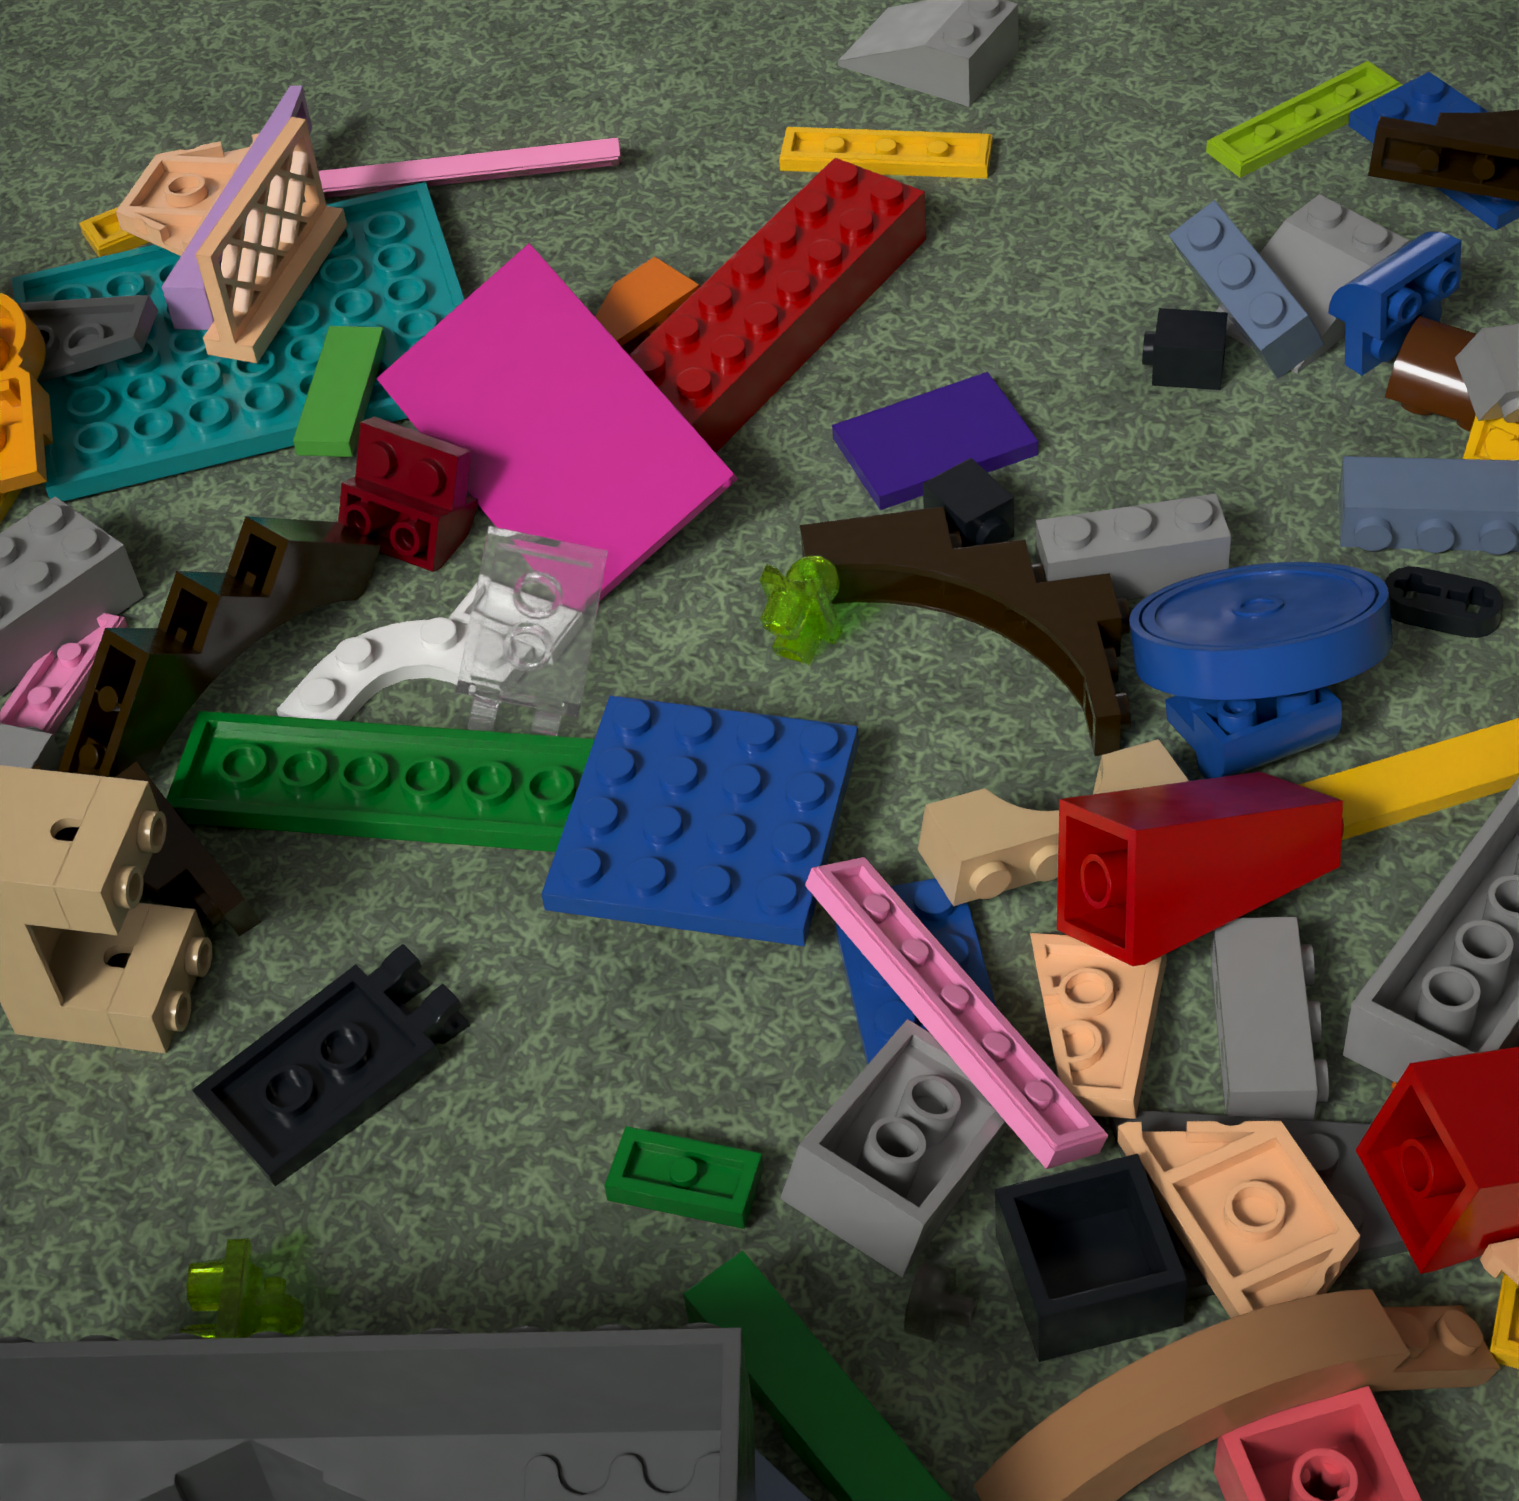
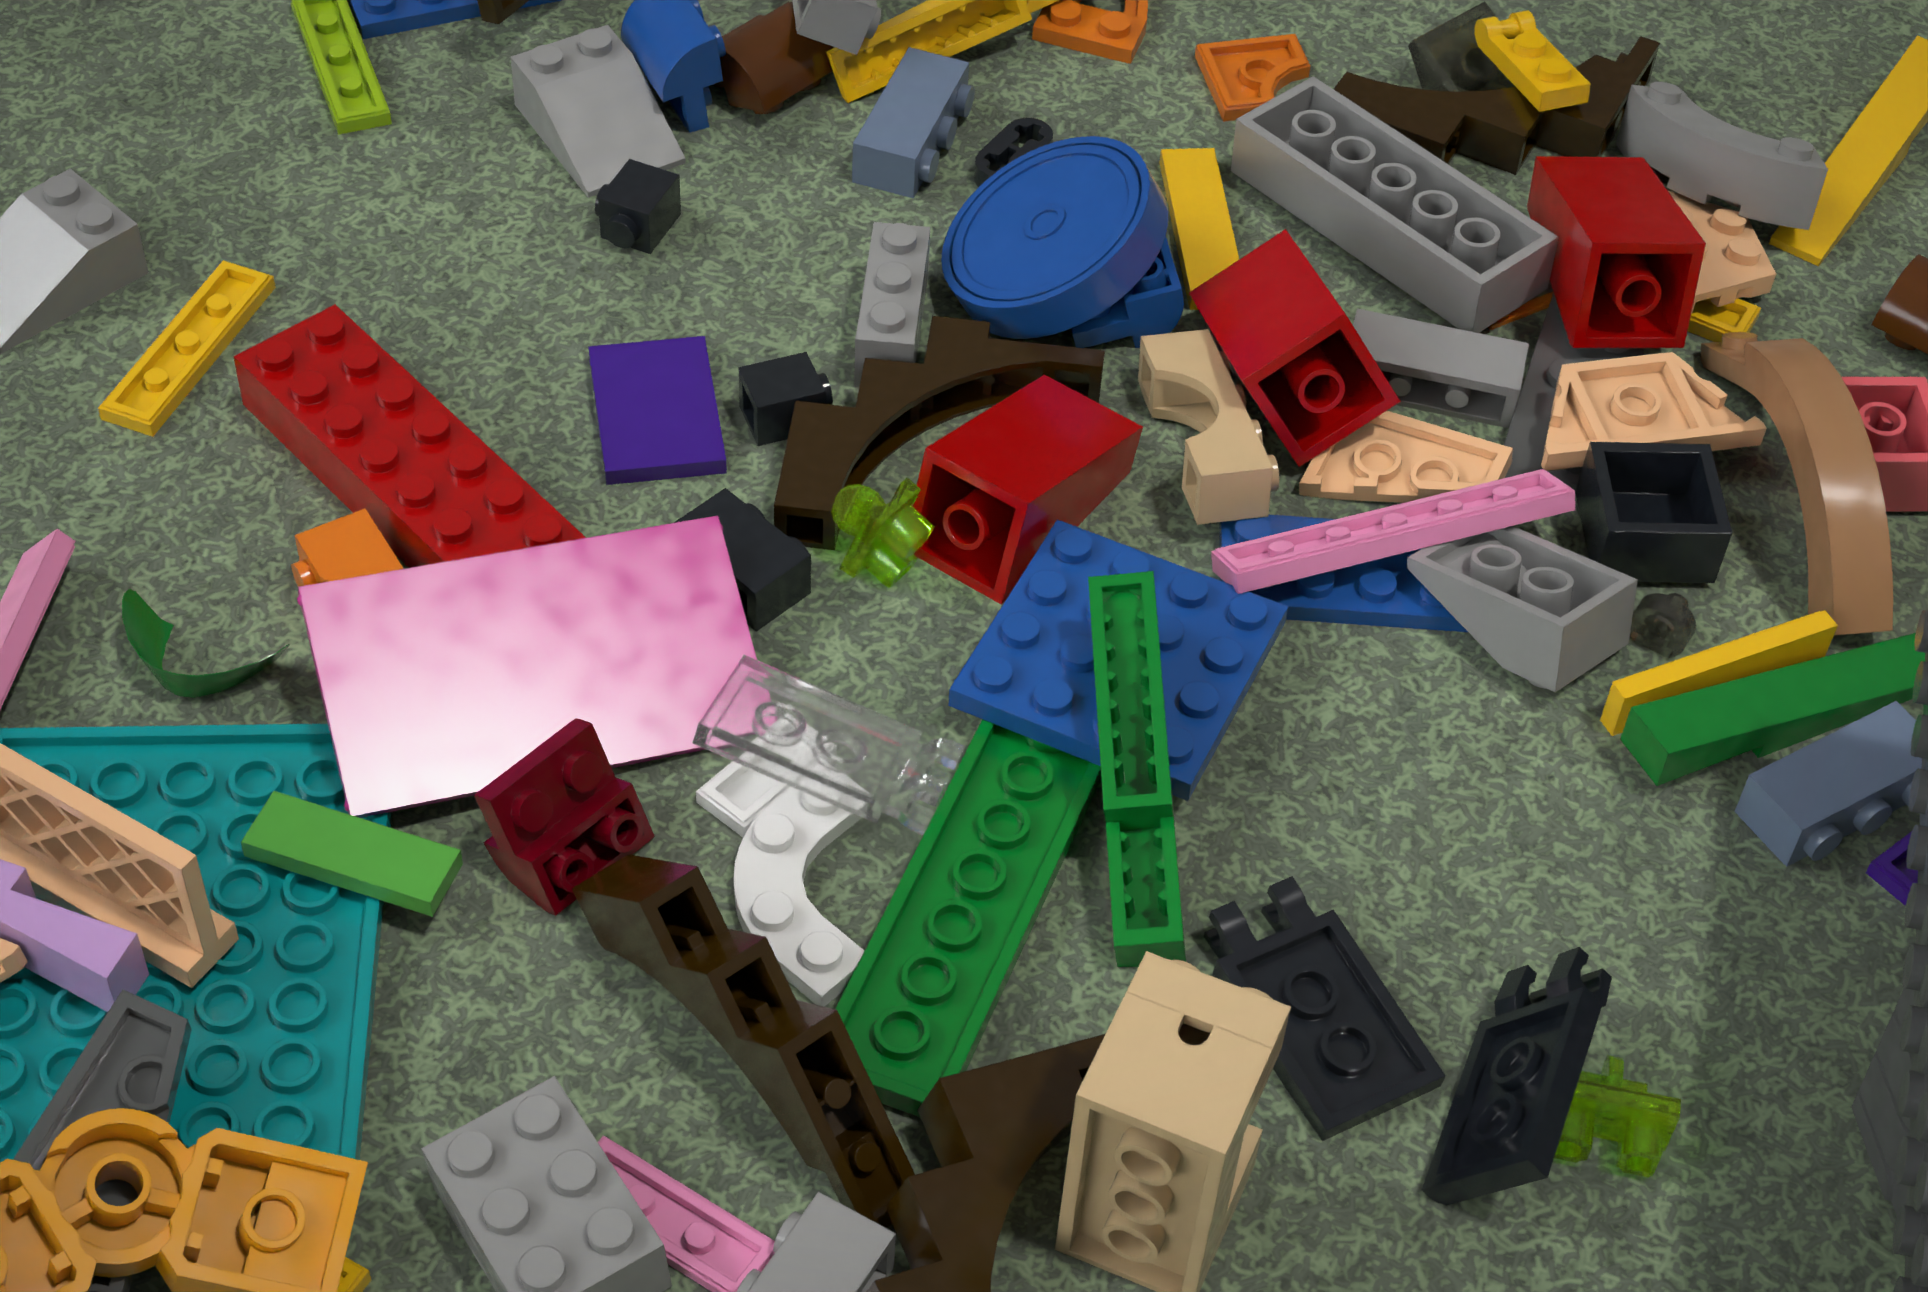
camera: 85 degrees left, 0 degrees up
(325, 1225) = (1518, 1082): none -> black tile
(530, 836) = (1135, 769): none -> green slope
(545, 225) = (149, 638): none -> green piece
(684, 1177) = (1506, 762): green plate -> none
(745, 530) = (766, 563): none -> black brick
(875, 1367) = (1747, 656): none -> yellow tile
(930, 695) = (1012, 474): none -> red slope
(1246, 289) = (602, 134): sand blue brick -> none

